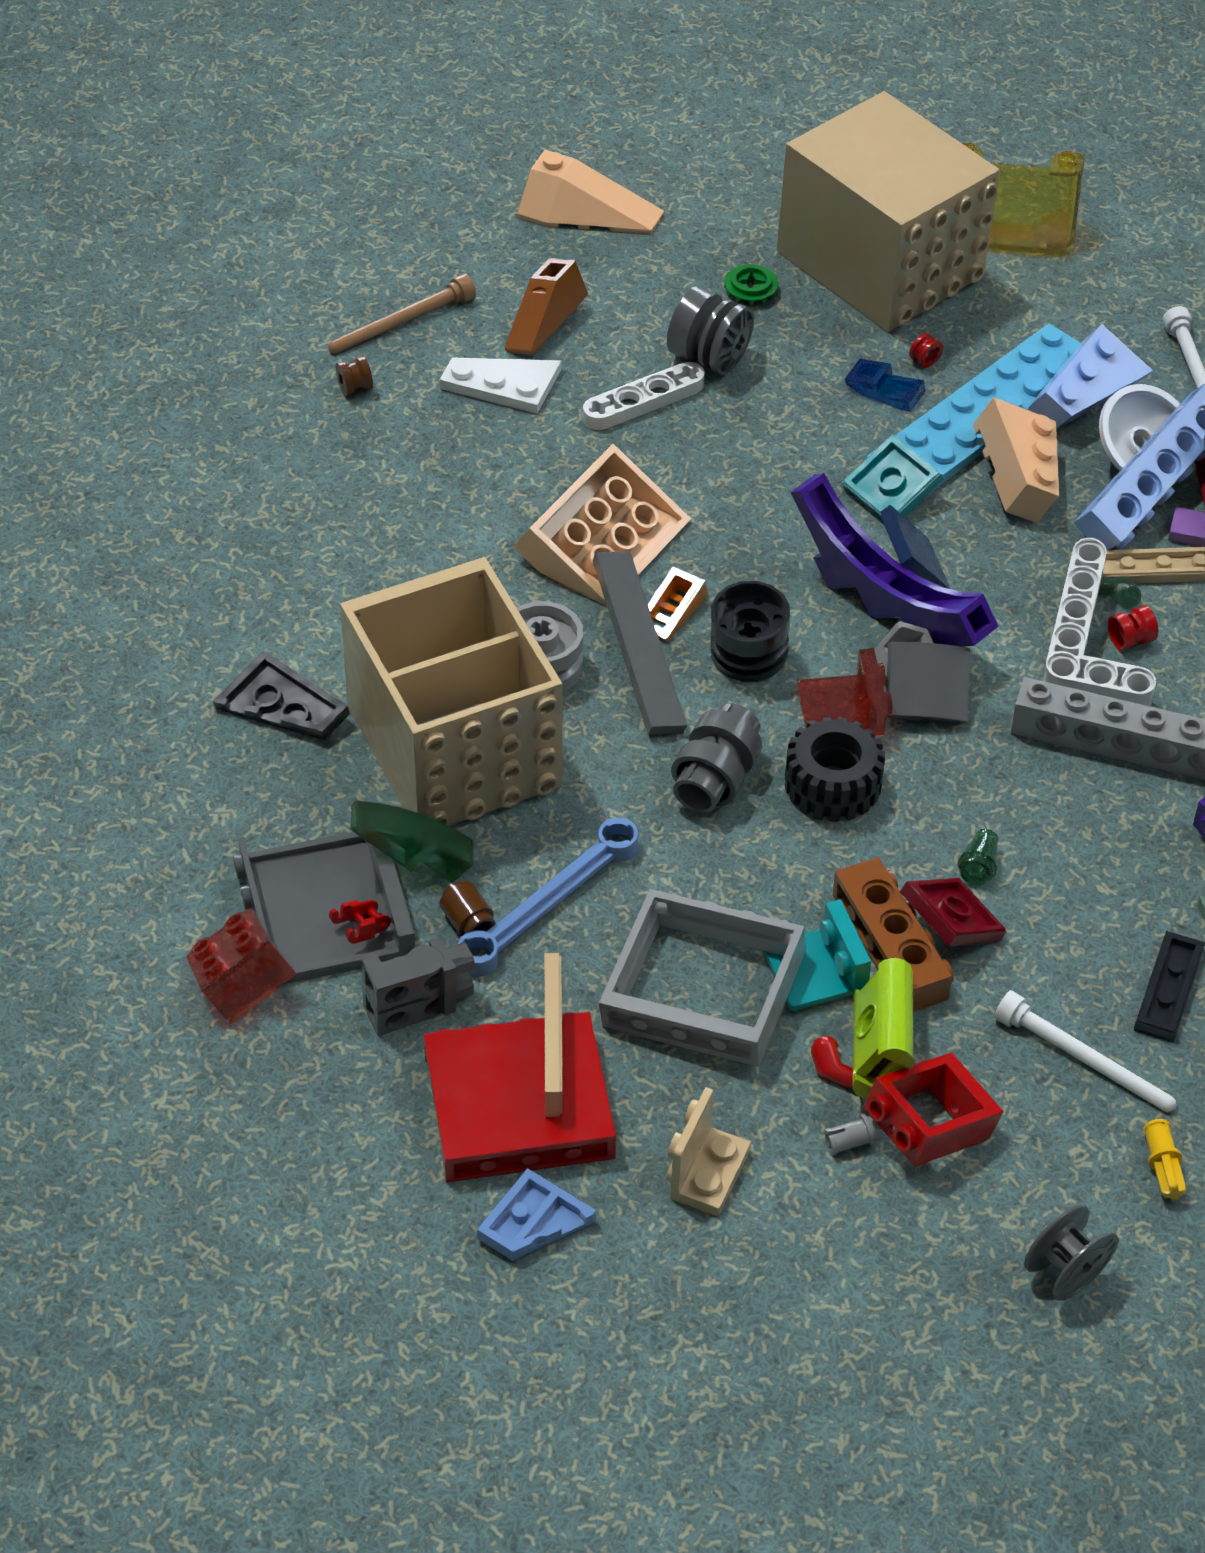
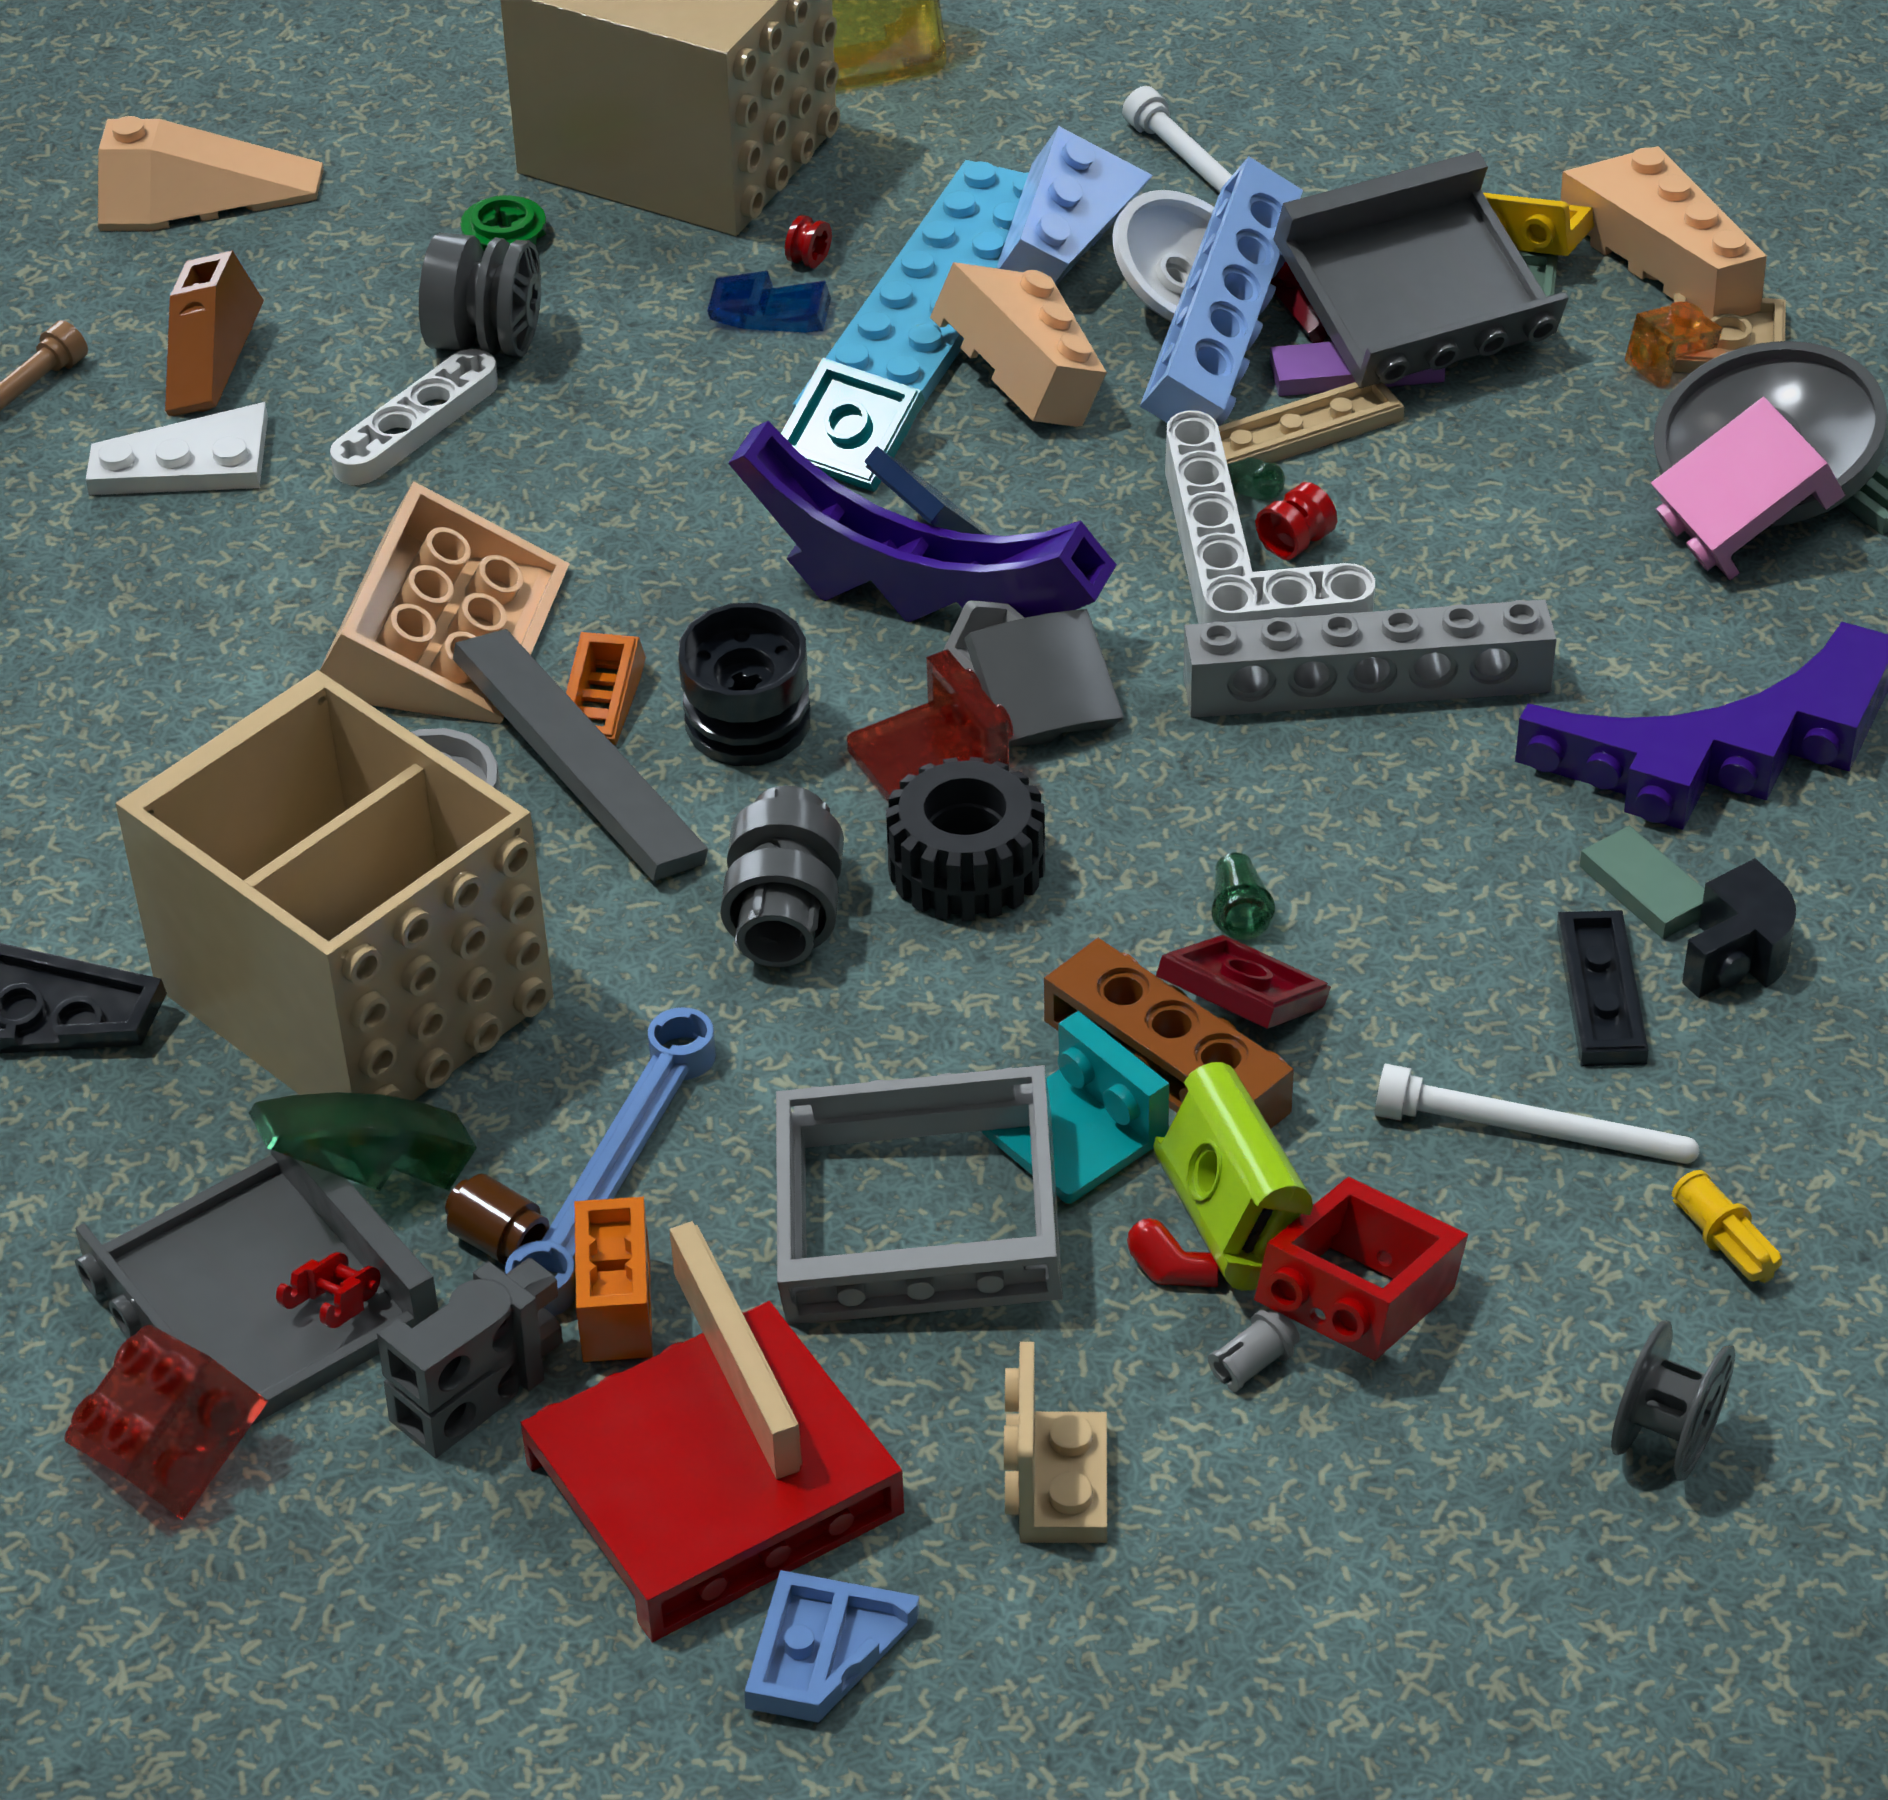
camera: 20 degrees left, 5 degrees down
(512, 968) = (613, 1279): none -> orange brick

